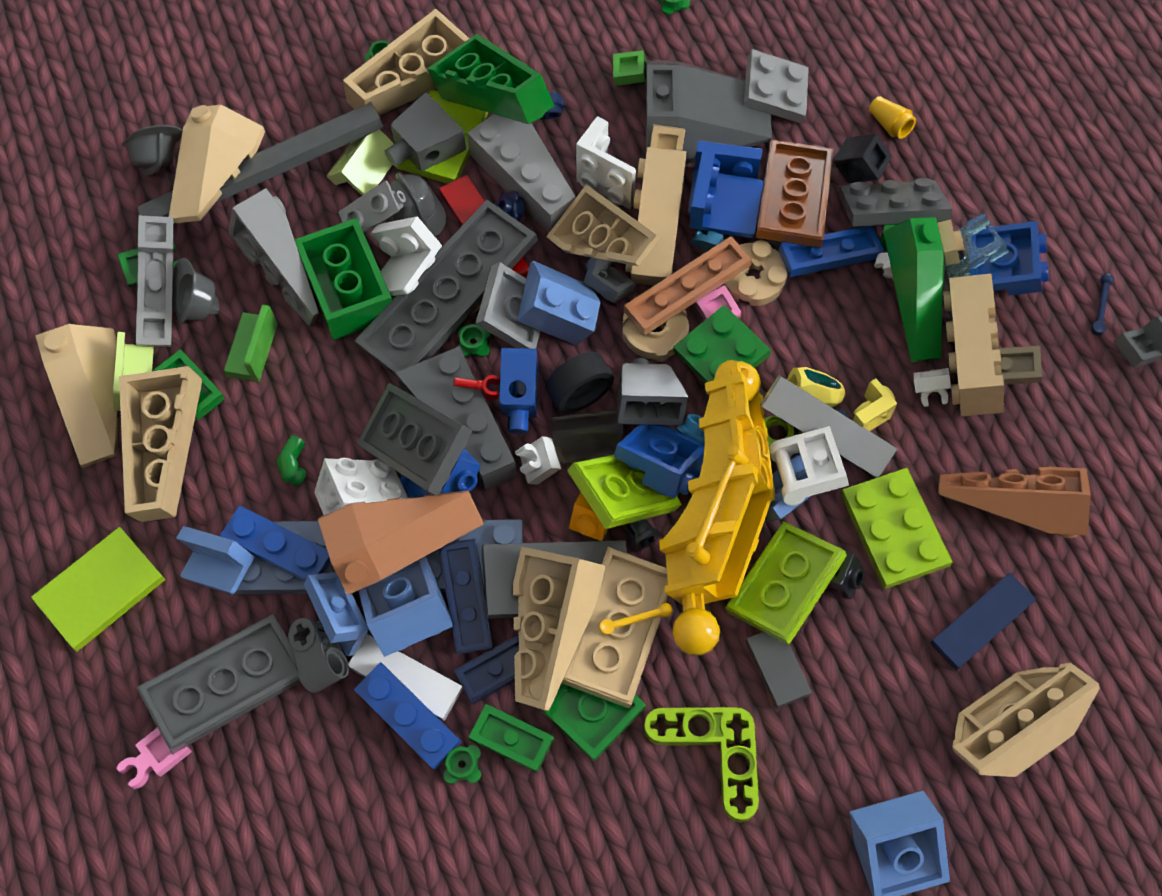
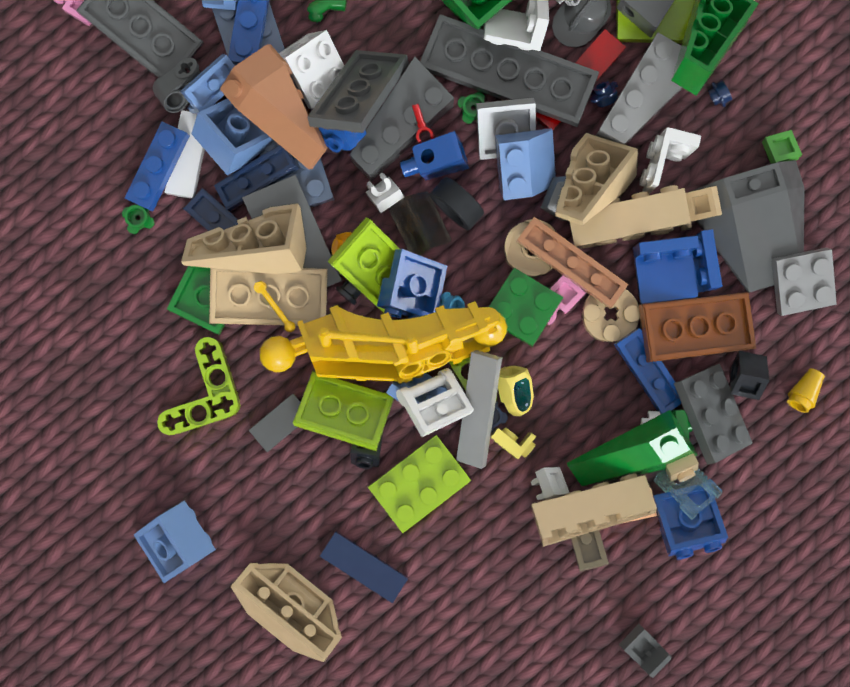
camera: 70 degrees right, 20 degrees up
(511, 738) = (165, 246): green plate -> none
(650, 394) = (464, 260): dark grey torso -> none
(707, 241) = (626, 267): dark azure tile -> none
(1049, 501) = (474, 584): nougat wedge -> none
(1099, 326) = (653, 609): dark blue hinge -> none

